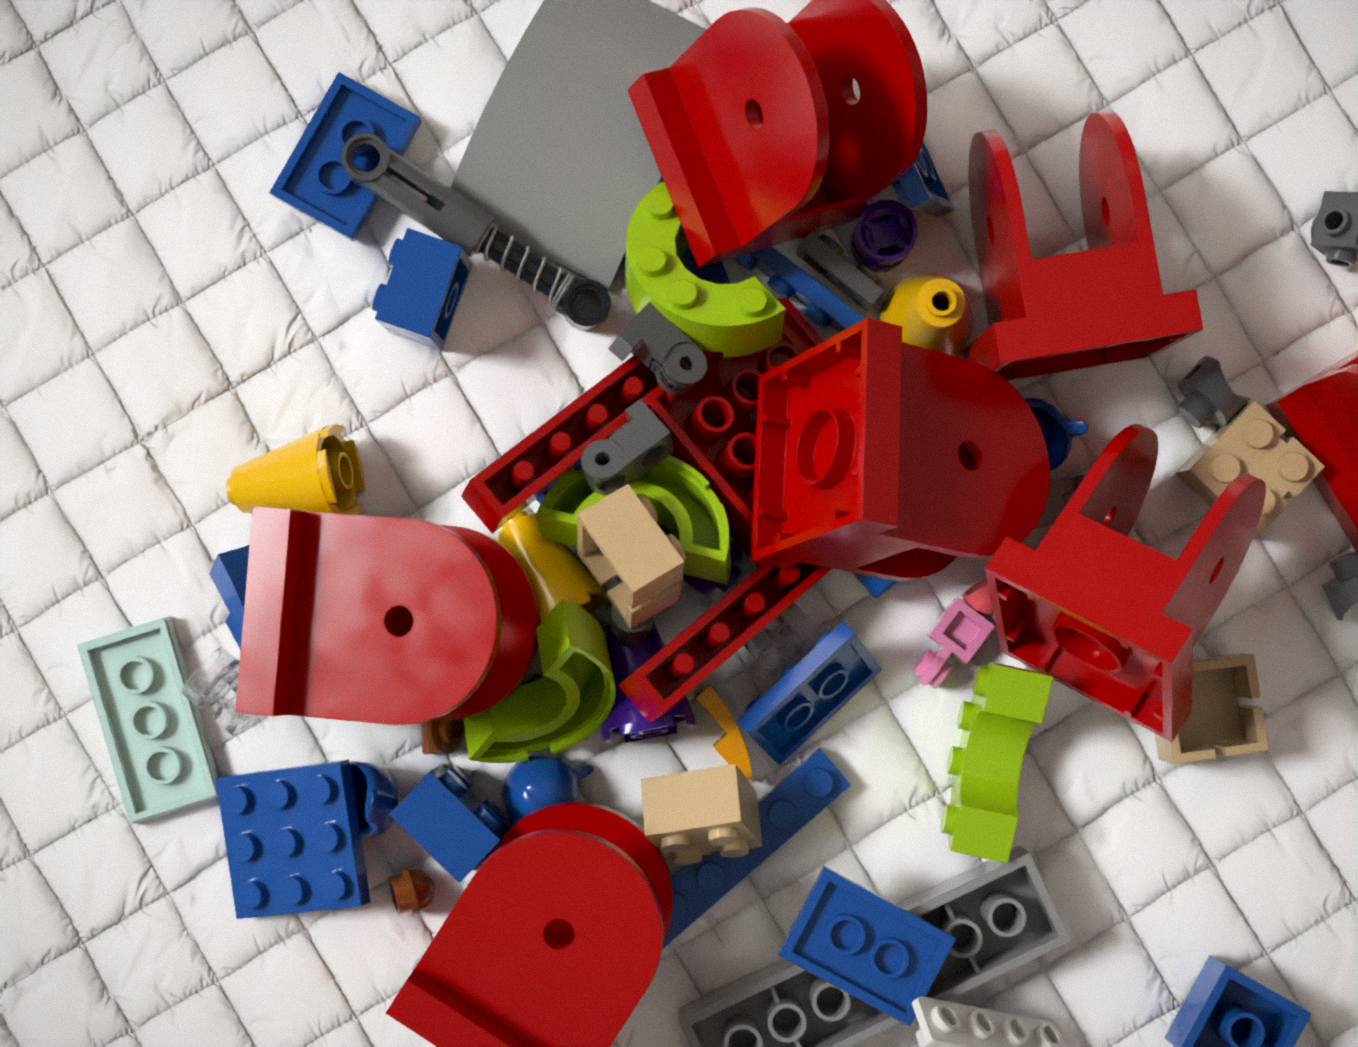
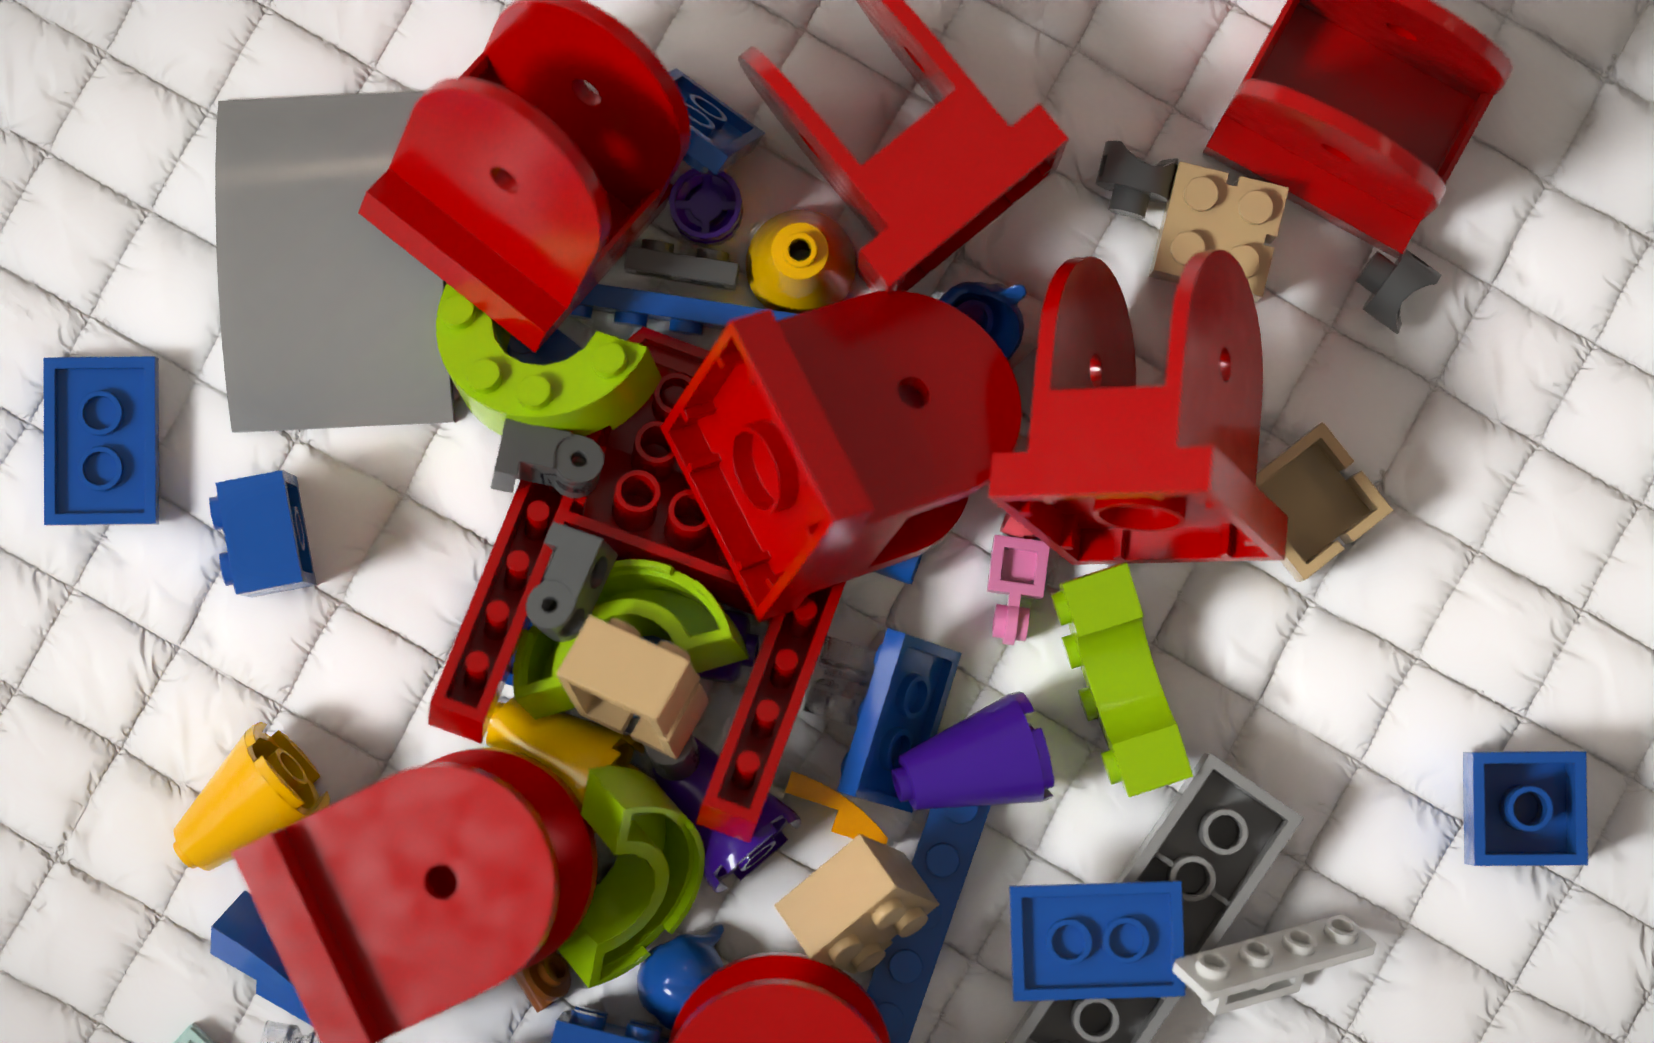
camera: 30 degrees left, 0 degrees up
(468, 226) = (276, 443): piece -> none
(854, 759) = (979, 761): none -> dark purple cone

